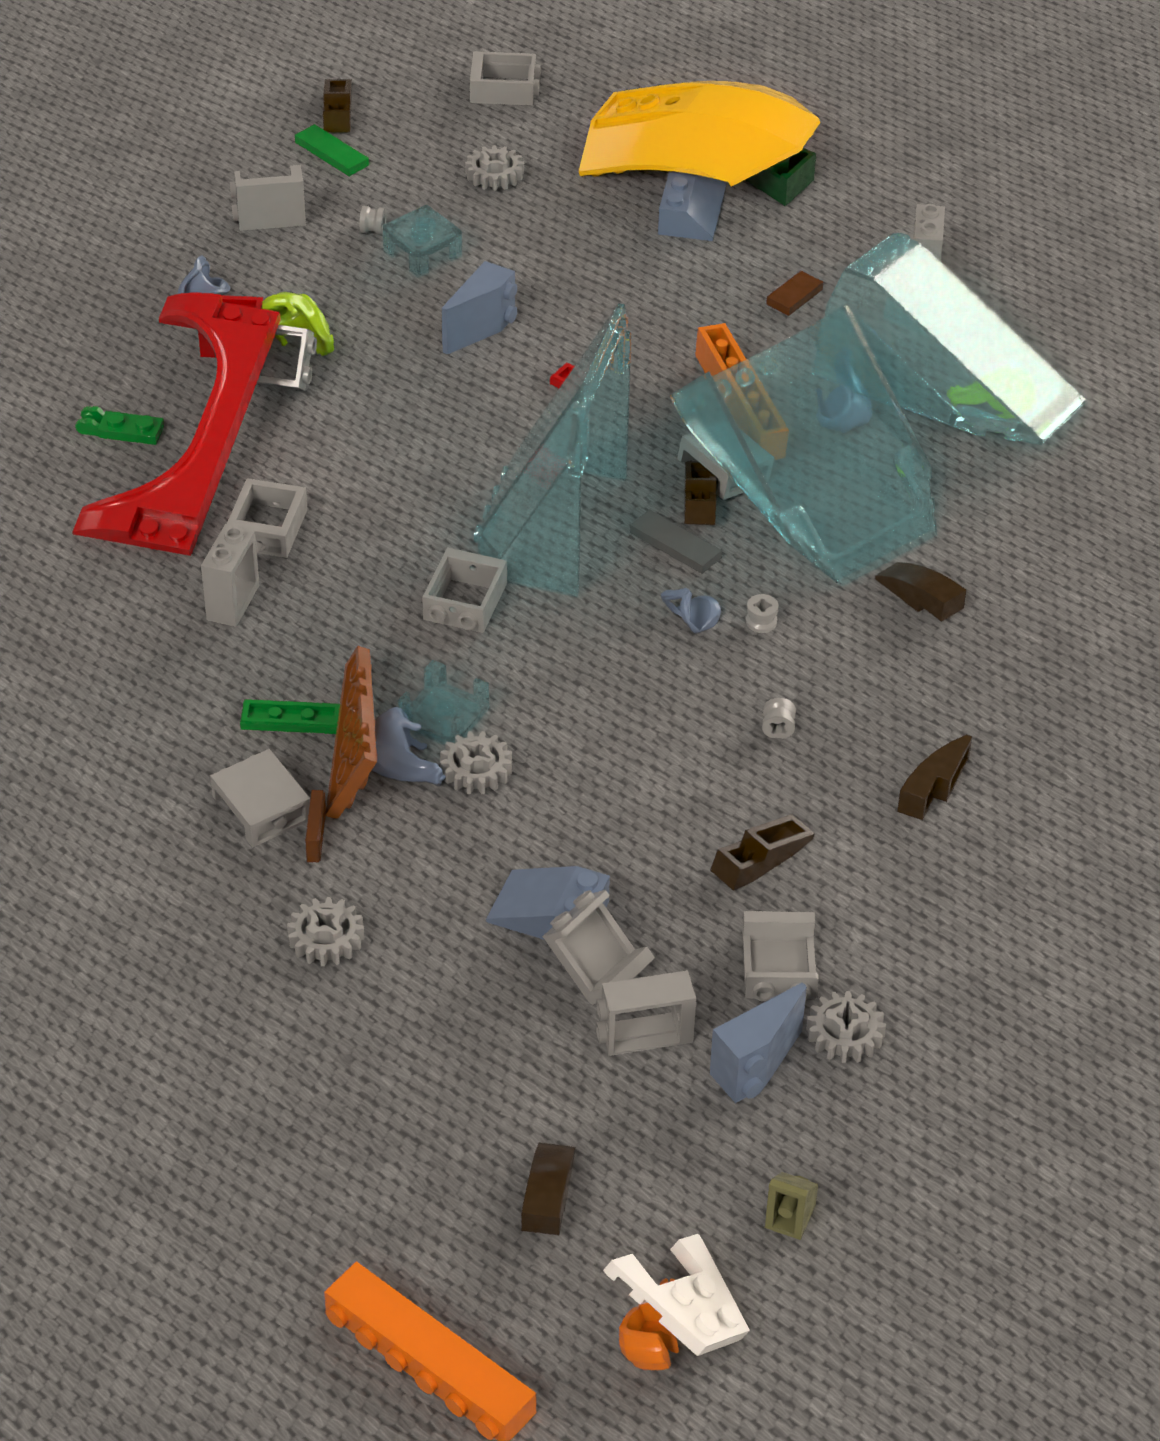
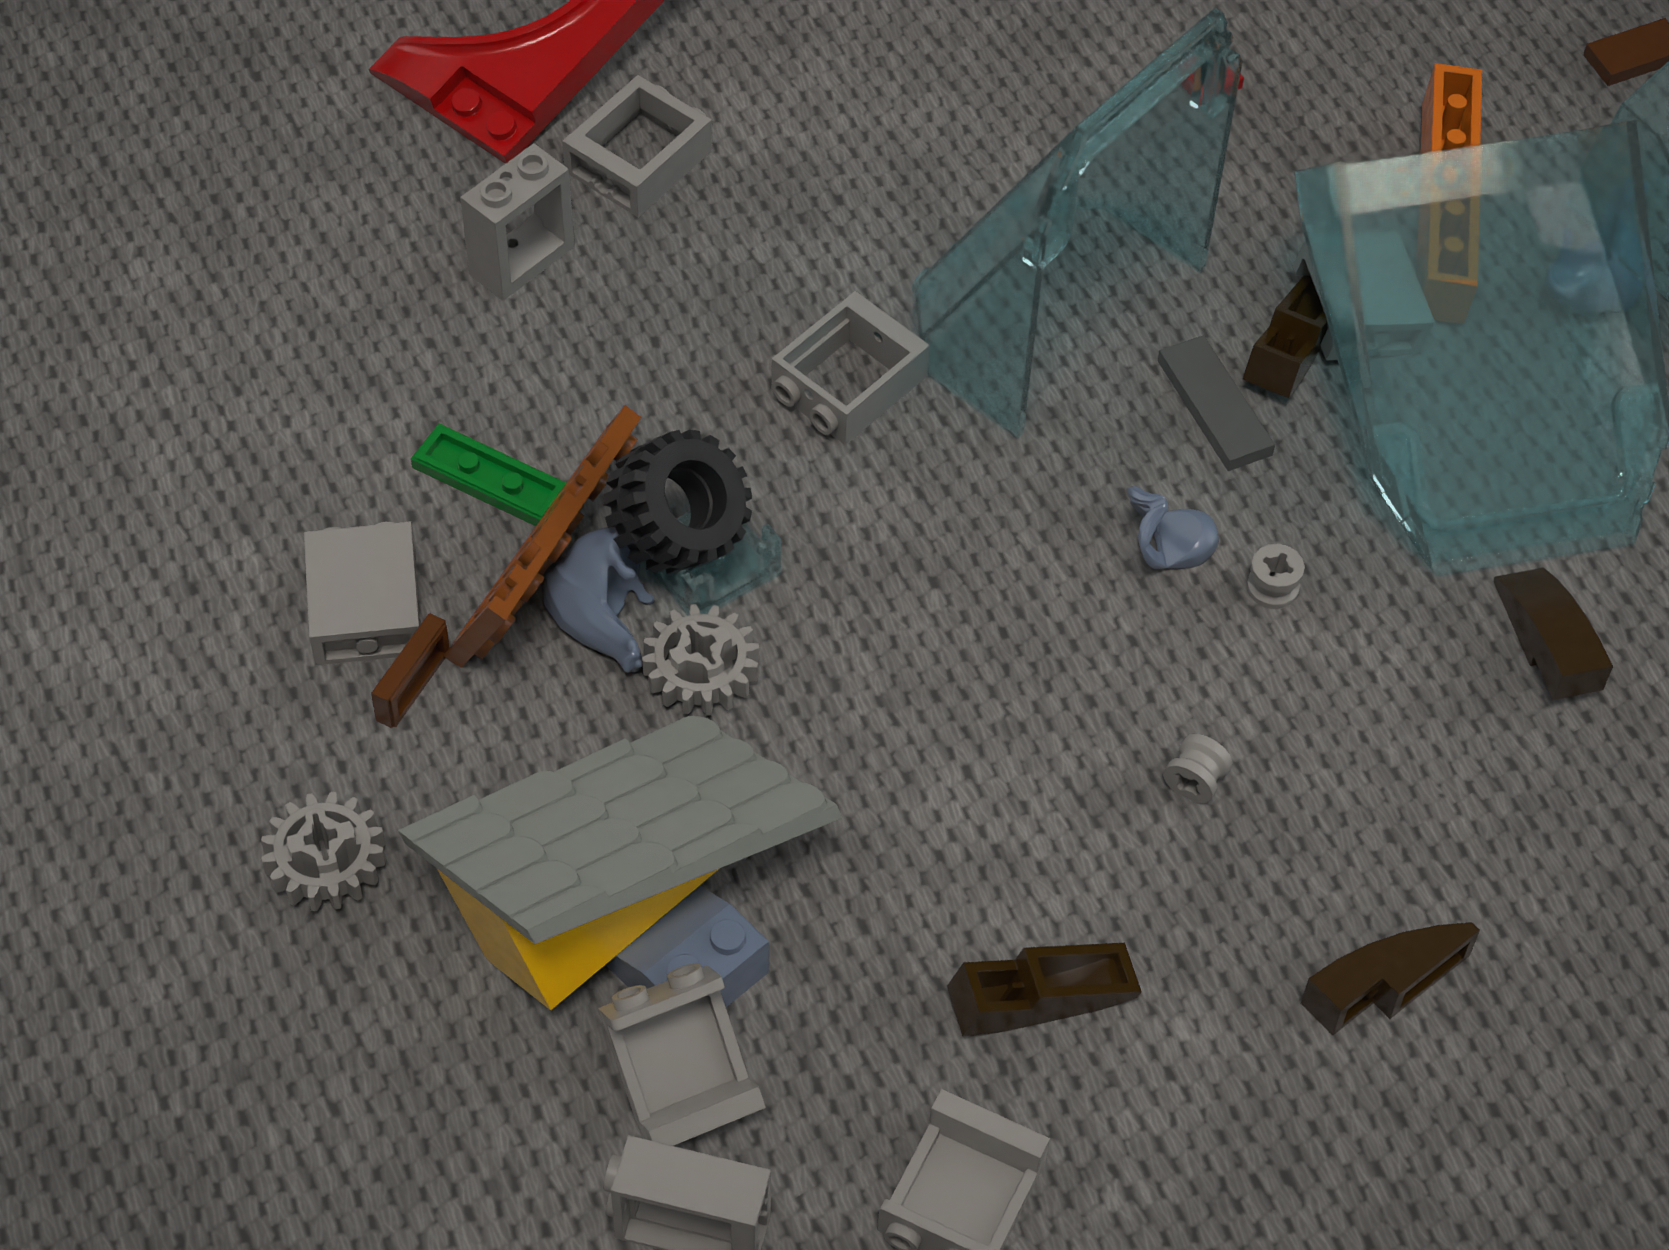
camera: 25 degrees right, 10 degrees up
(426, 678) = (712, 489): none -> black tyre
(492, 865) = (602, 849): none -> light grey piece

